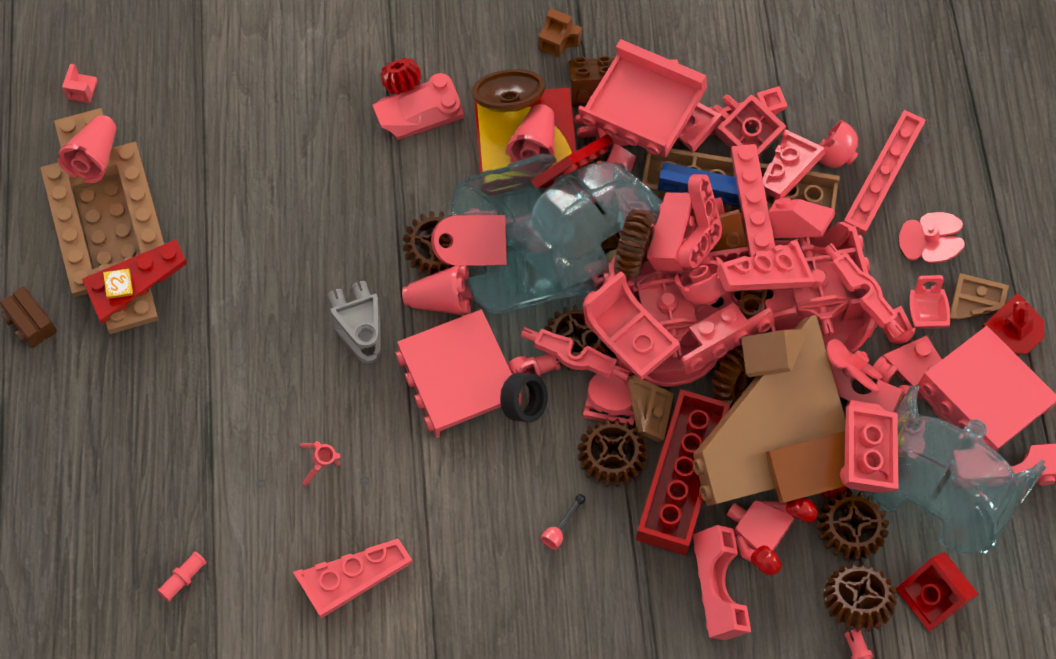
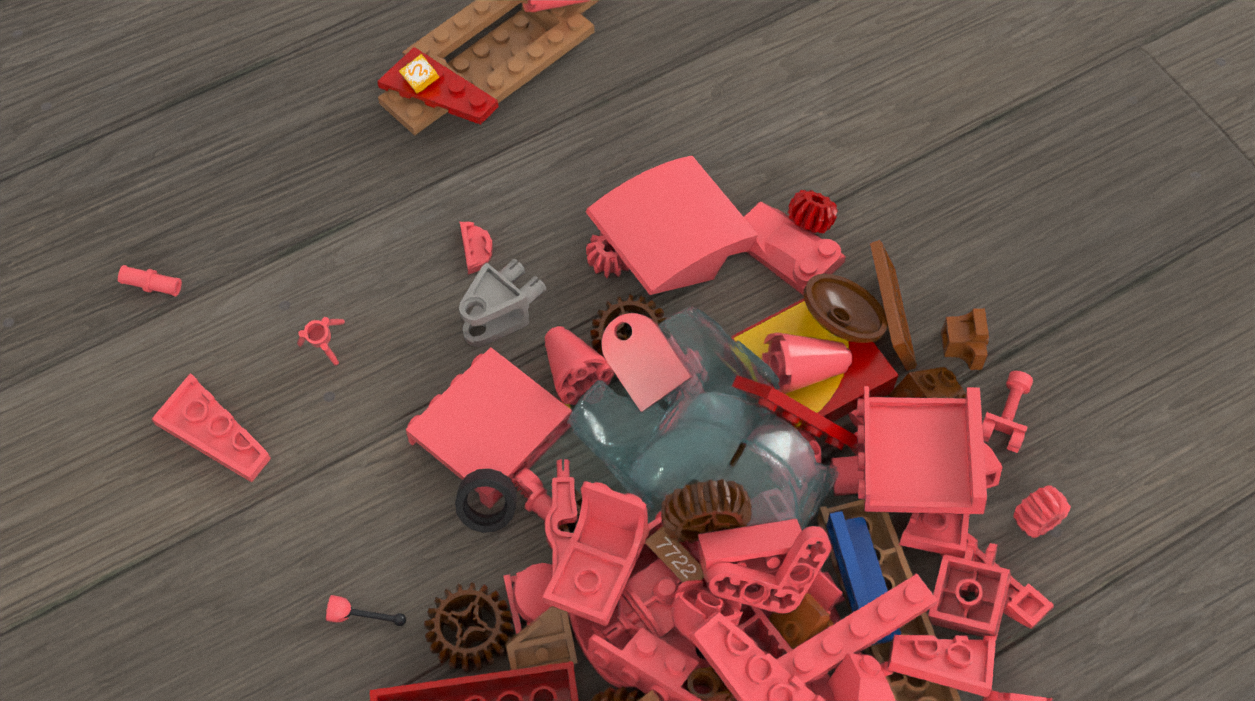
camera: 65 degrees right, 5 degrees down
(28, 317) = (364, 33): reddish brown brick -> none
(288, 319) = (477, 246): none -> coral tile
(363, 170) = (672, 225): none -> coral slope
(363, 223) = (604, 257): none -> coral gear
(508, 61) = (893, 305): none -> dark orange tile
(608, 23) = (1018, 384): none -> coral bar
(651, 283) = (675, 556): none -> medium nougat sticker
(711, 58) = (1041, 511): none -> coral gear

